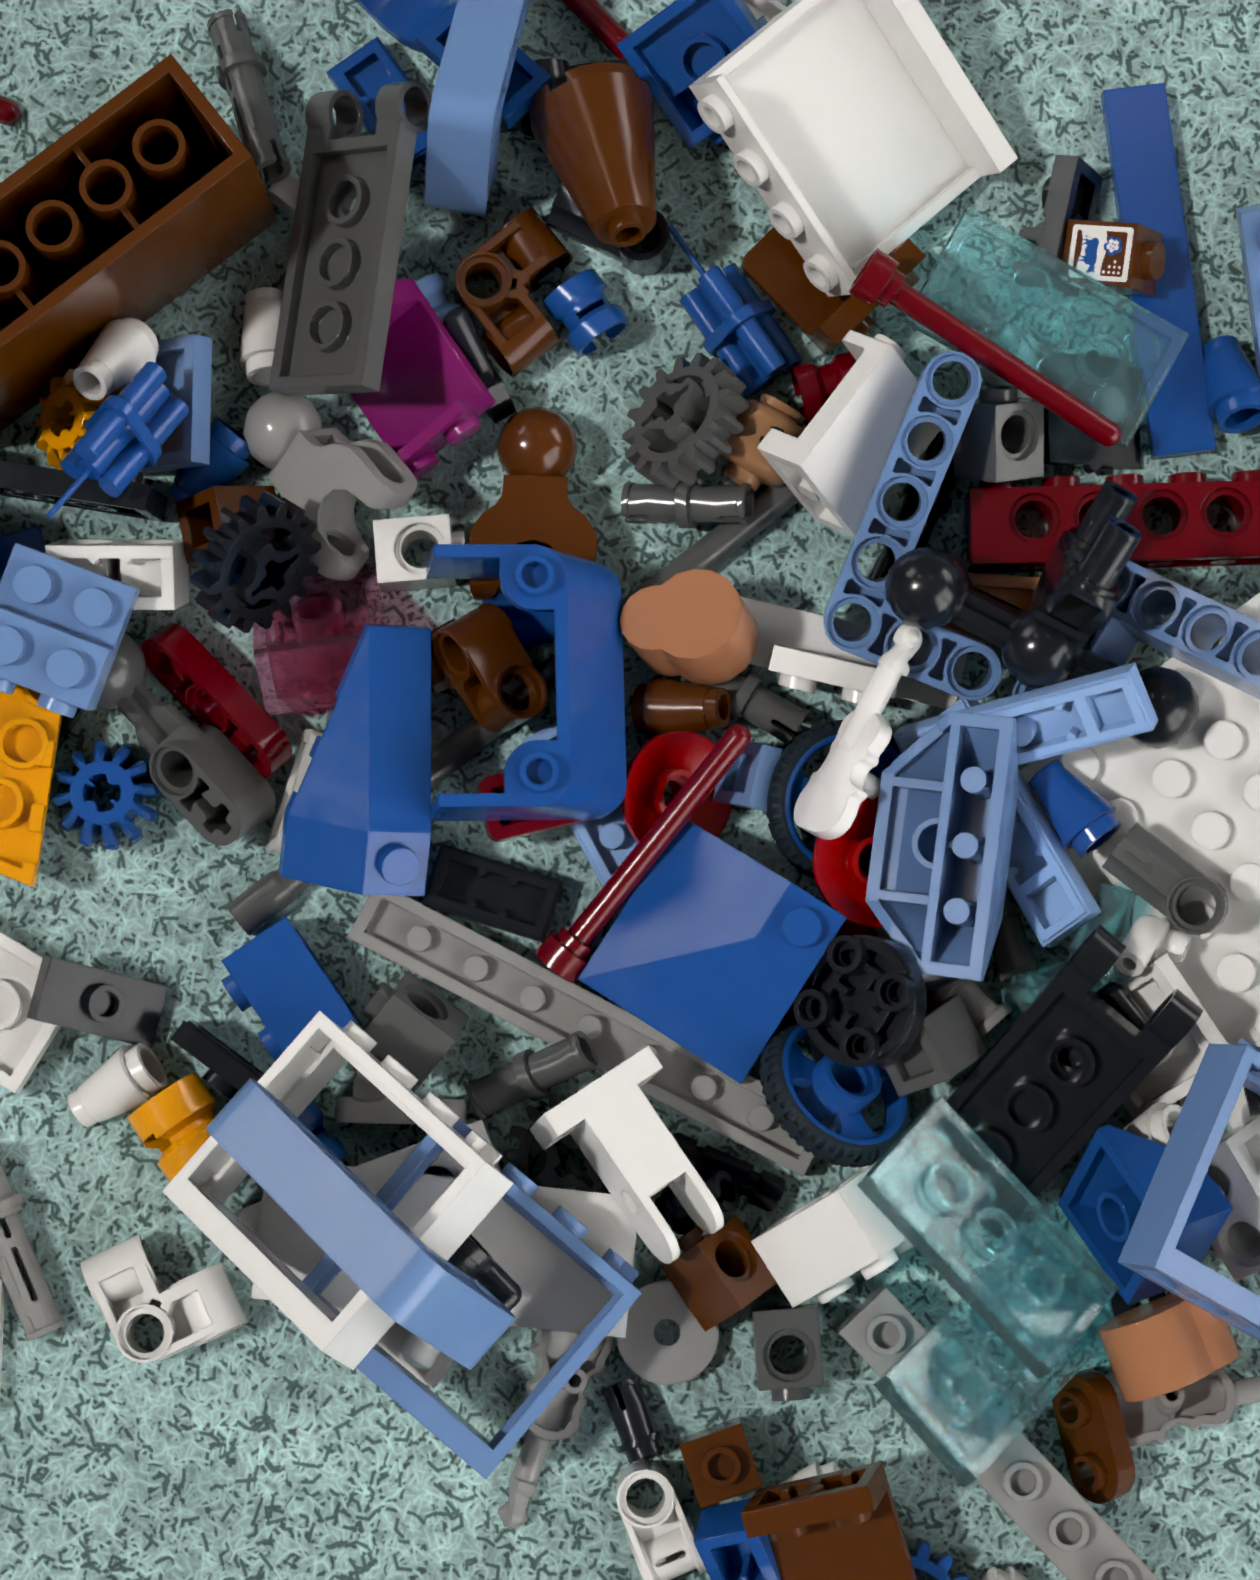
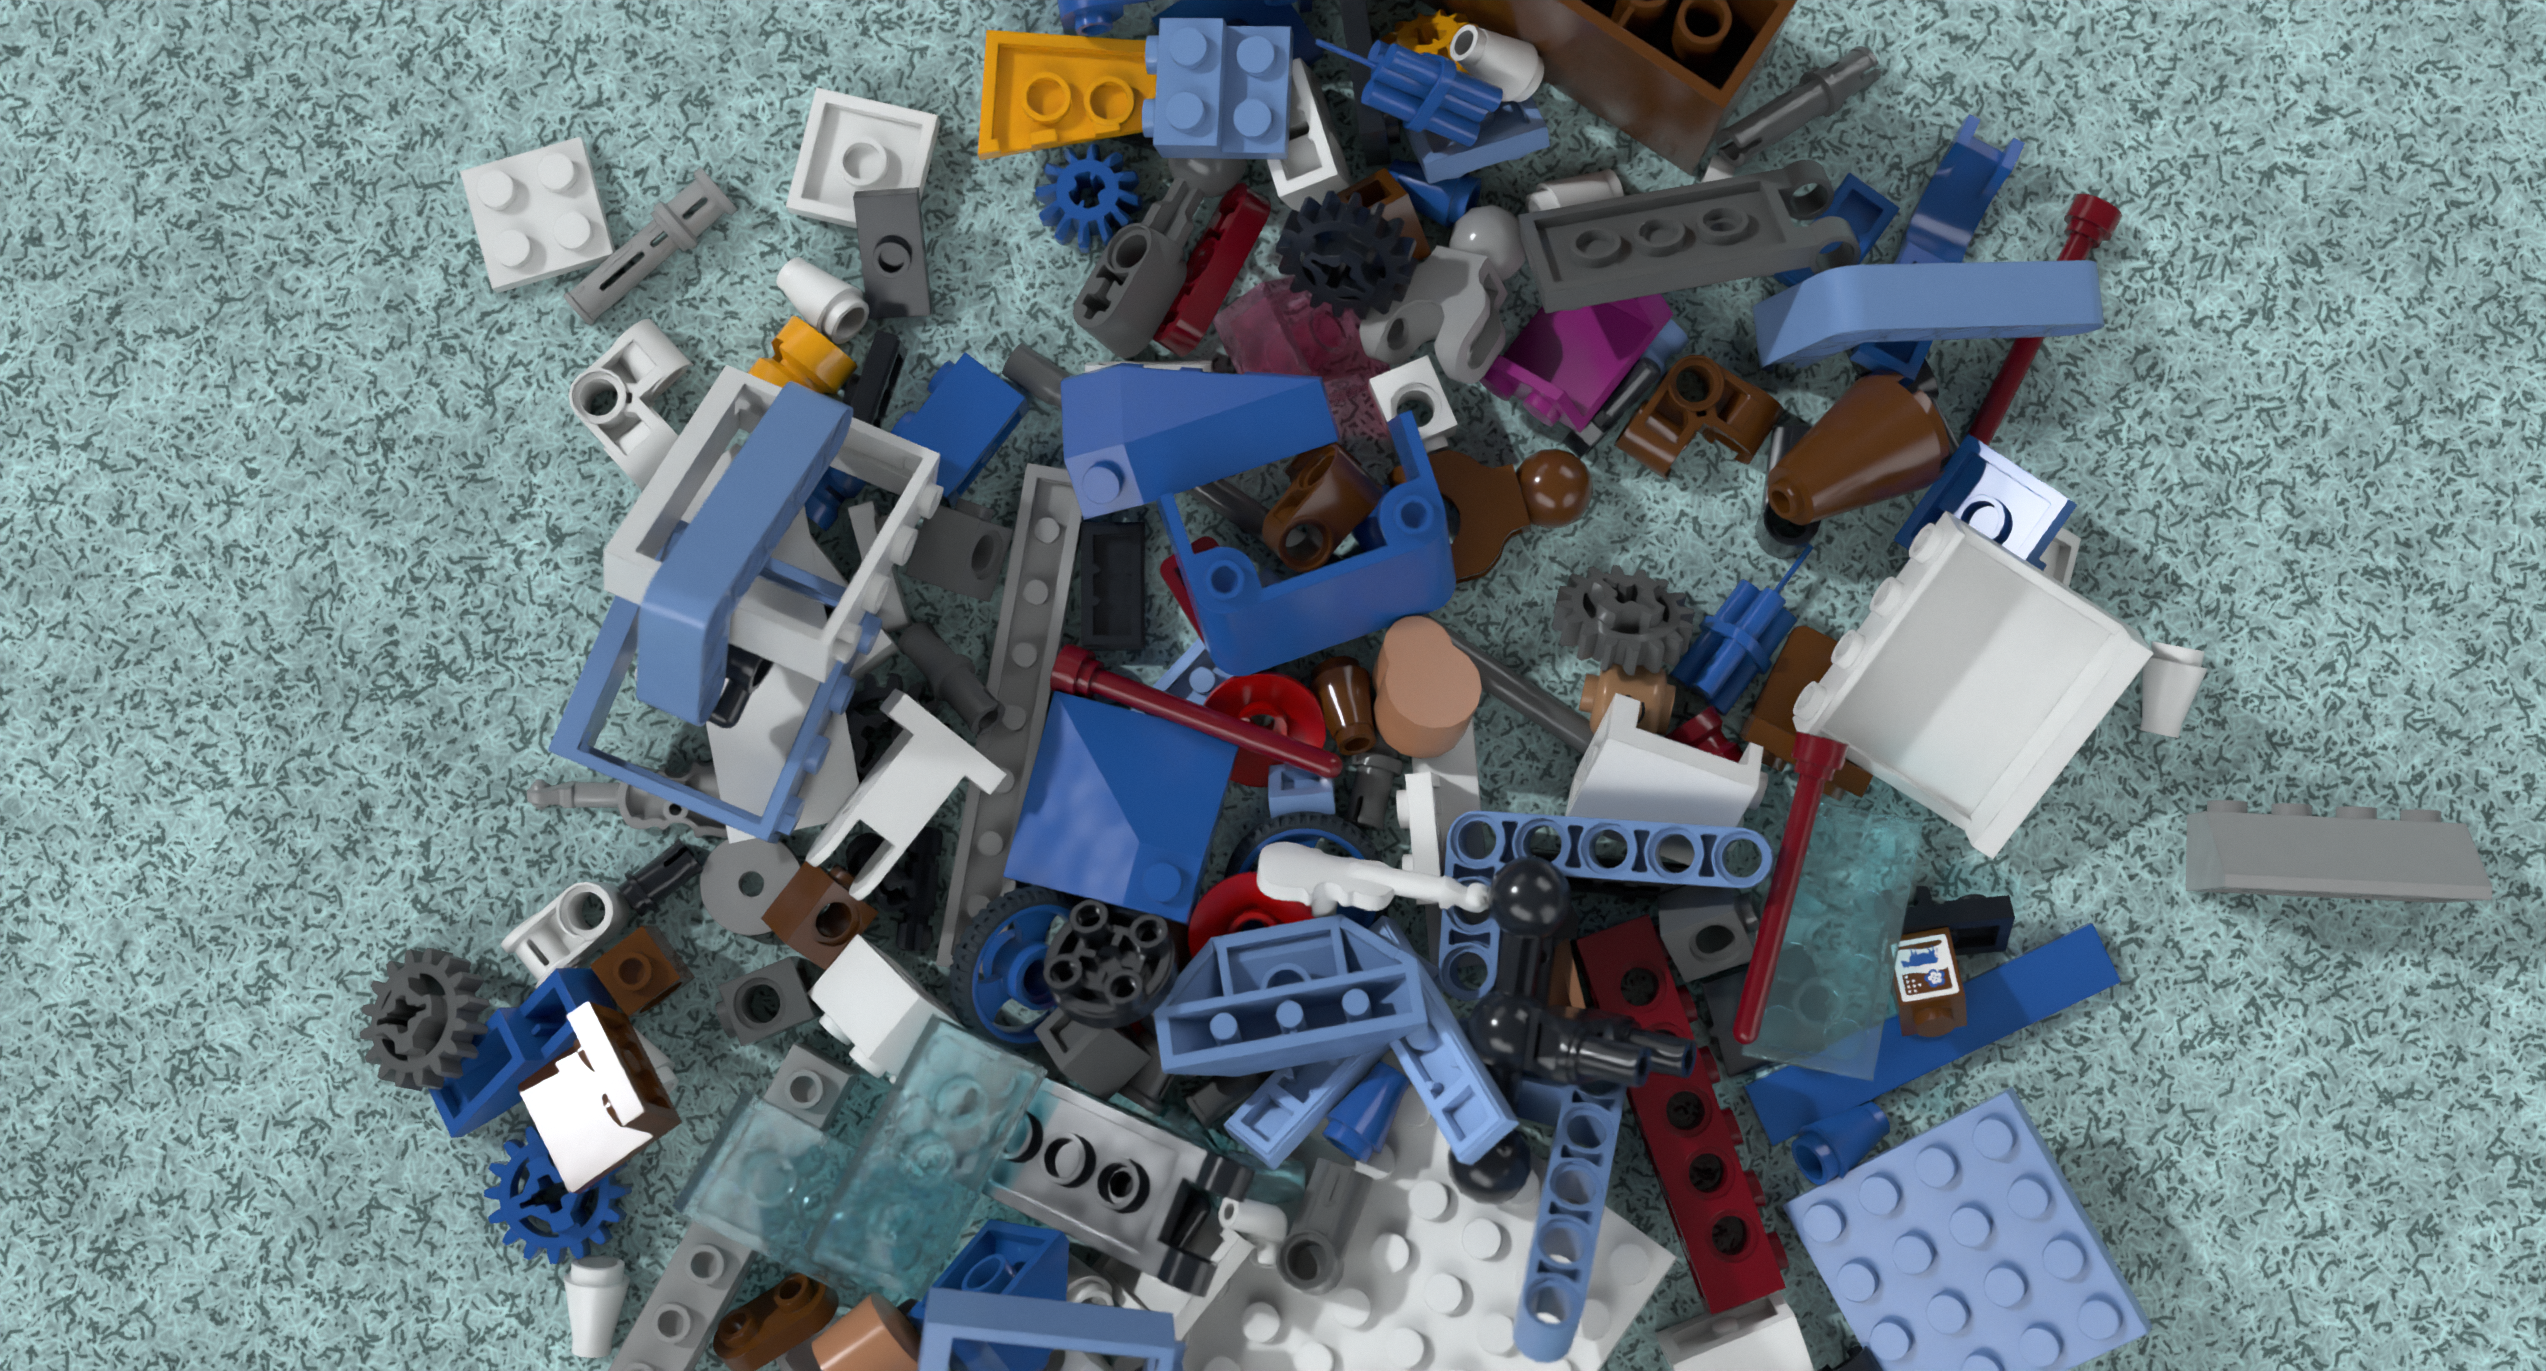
camera: 75 degrees right, 0 degrees up
(585, 311) = (1700, 492): blue wheel -> none
(687, 503) = (1543, 650): dark grey pin -> none

